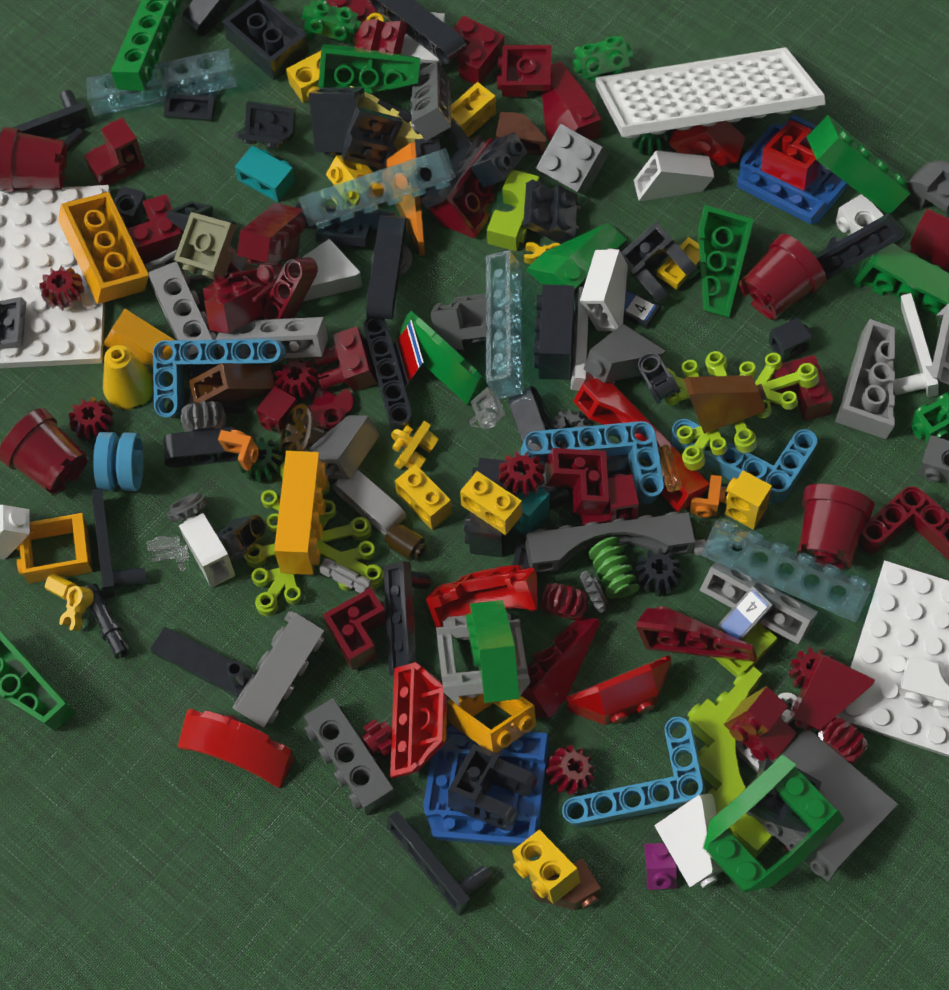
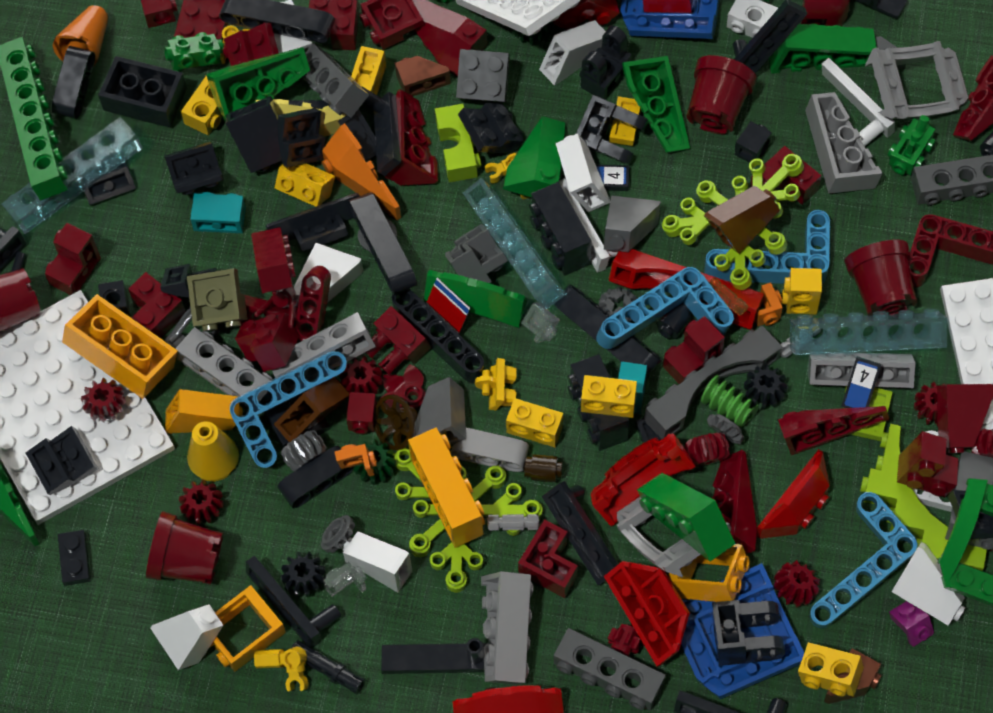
camera: 30 degrees left, 0 degrees up
(118, 461) = (256, 524): dark azure wheel -> none
(146, 530) = (305, 583): none -> black gear
(242, 535) = (403, 531): black piece -> none
(314, 203) = (286, 214): clear light blue brick -> none
(498, 159) = (420, 104): black brick -> none
(531, 477) = (619, 352): dark red gear -> none
(583, 472) = (666, 335): dark red brick -> none
(657, 377) = (674, 228): black piece -> none
(677, 199) = (604, 68): none -> black brick

